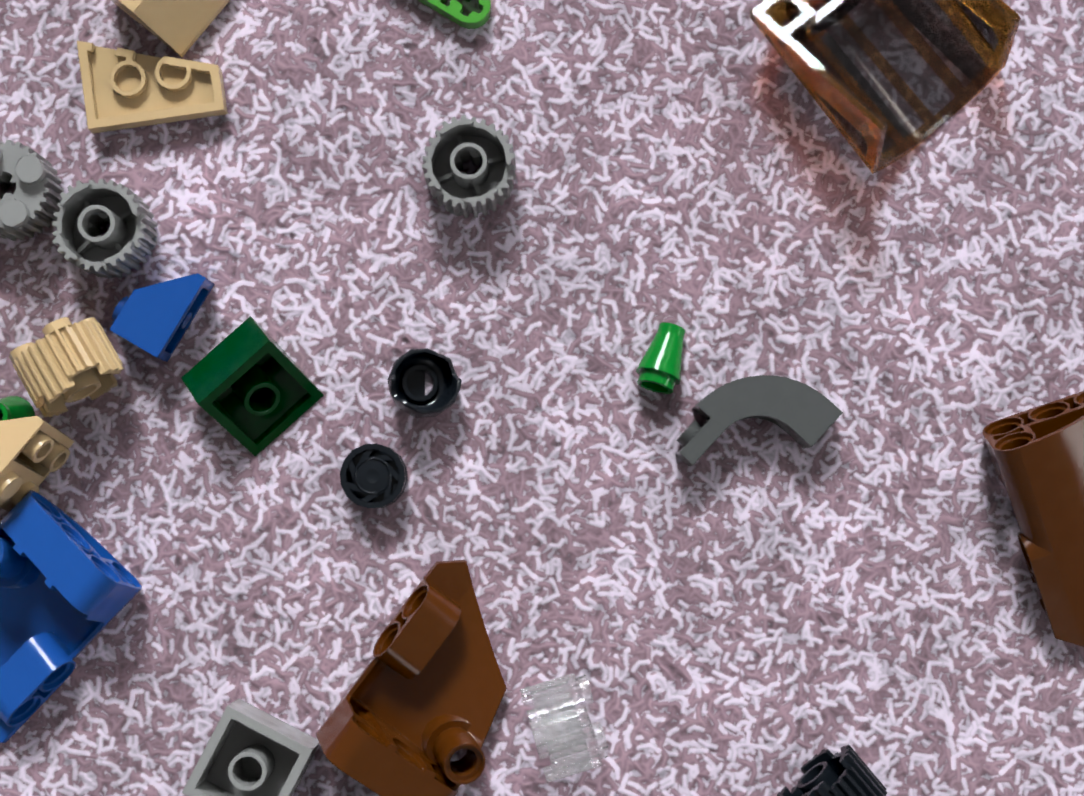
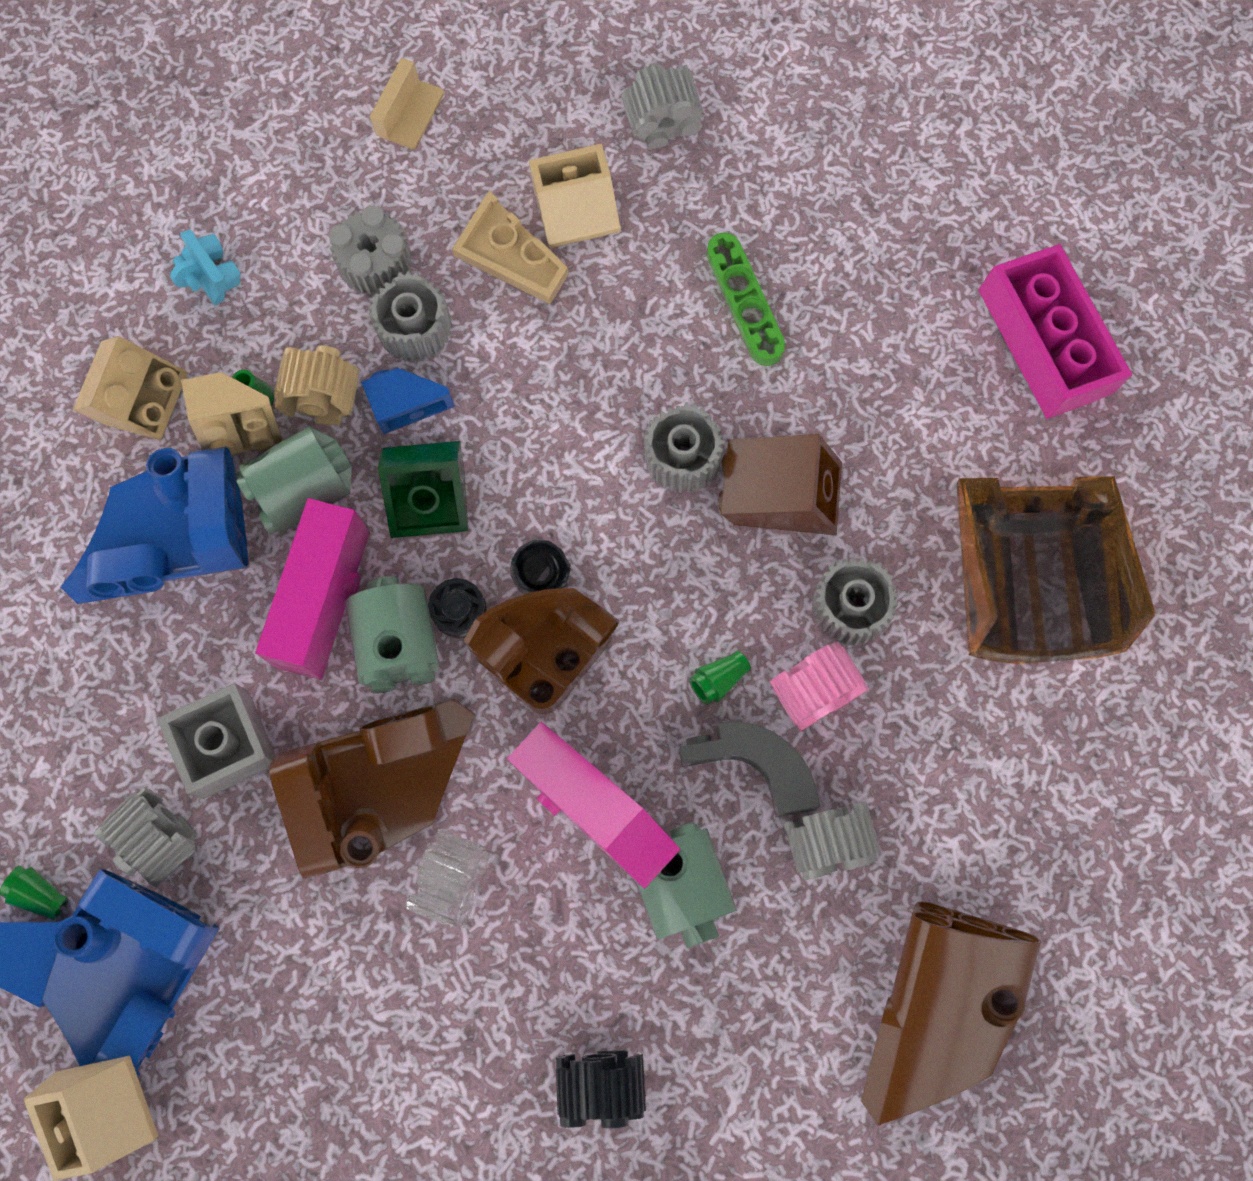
camera: 45 degrees right, 10 degrees down
(123, 471) = (293, 471): none -> sand green cylinder
(228, 561) = (314, 589): none -> dark pink brick
(320, 538) = (391, 620): none -> sand green cylinder
(473, 461) = (537, 634): none -> reddish brown panel
(585, 135) = (782, 484): none -> reddish brown slope
(647, 568) = (593, 804): none -> dark pink brick
(756, 186) = (850, 623): none -> light grey brick
(761, 302) = (819, 685): none -> bright pink brick
(788, 582) = (693, 896): none -> sand green cylinder
(876, 434) = (833, 839): none -> light grey brick

